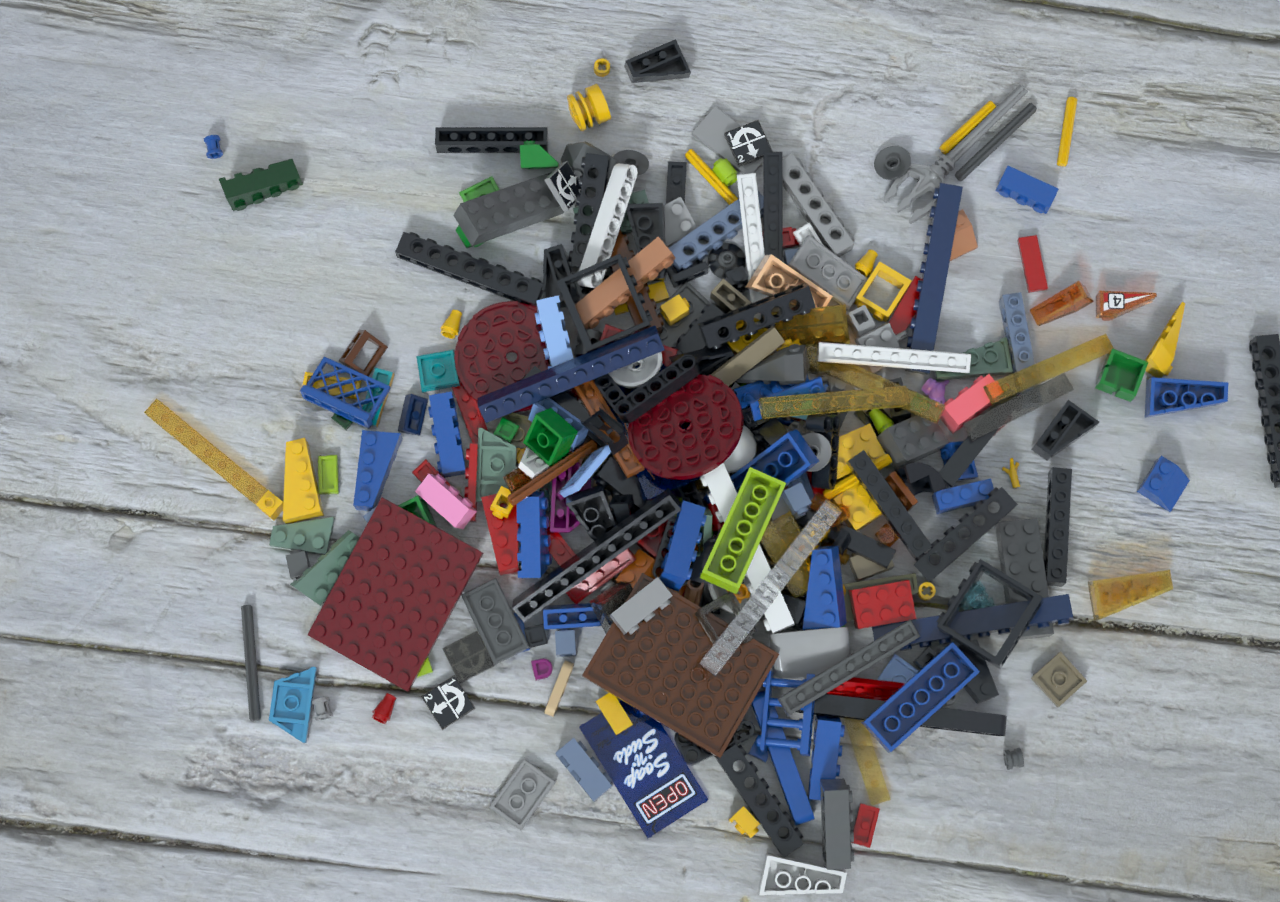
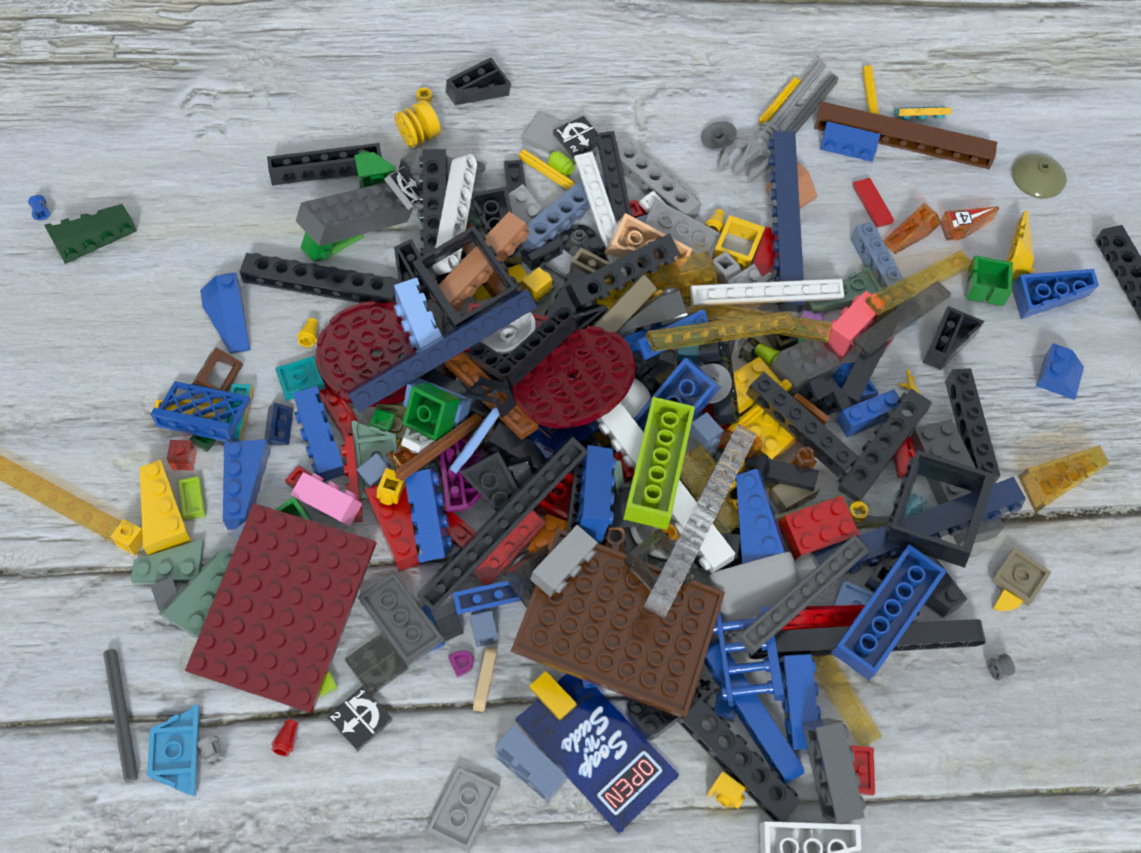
camera: 15 degrees left, 15 degrees down
(323, 433) = (181, 455): none -> clear red brick
(377, 285) = (225, 308): none -> blue wedge
(492, 480) = (373, 470): none -> sand blue brick
(985, 547) = (903, 456): none -> red plate
(1039, 700) = (1007, 602): none -> yellow tile
(1090, 191) = (912, 136): none -> reddish brown brick
(1114, 164) = (922, 112): none -> pearl gold plate
(1209, 265) = (1039, 176): none -> olive dish

